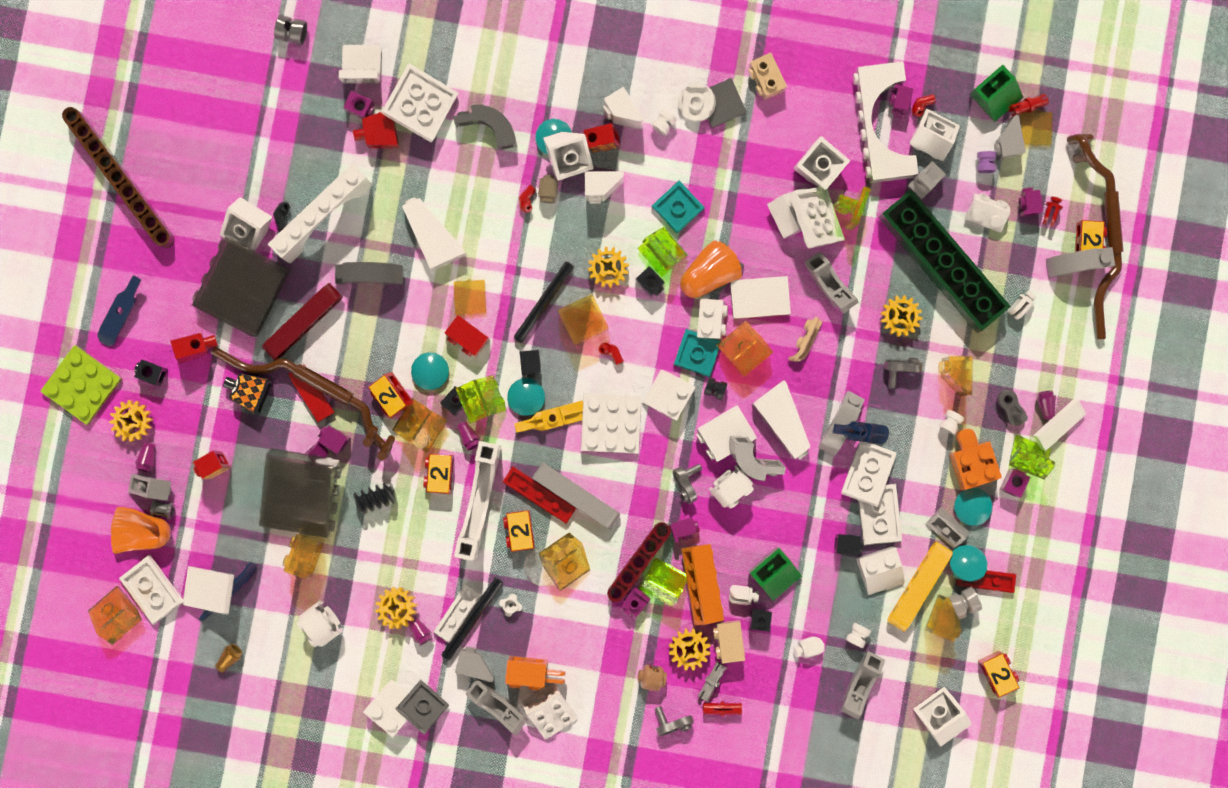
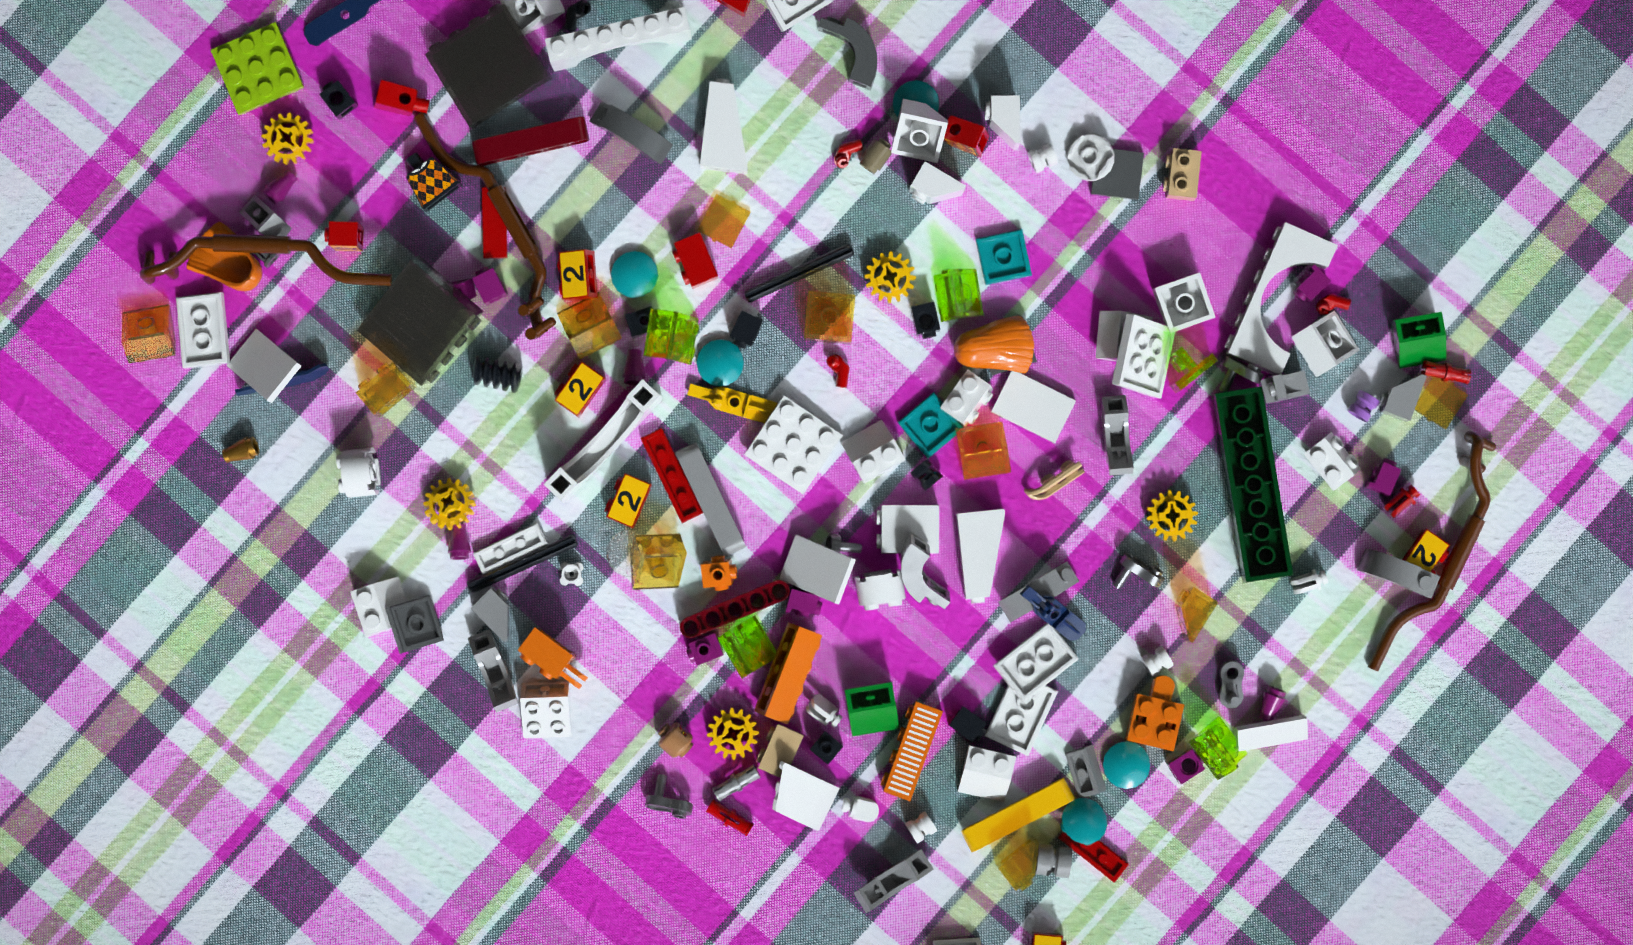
camera: 35 degrees right, 0 degrees up
(151, 508) = (255, 244): none -> reddish brown piece
(611, 550) = (711, 577): none -> orange brick
(680, 500) = (817, 569): none -> white tile
(765, 663) = (803, 796): none -> white slope
(821, 586) = (912, 751): none -> orange brick
(896, 184) = (1235, 366): none -> flat silver piece

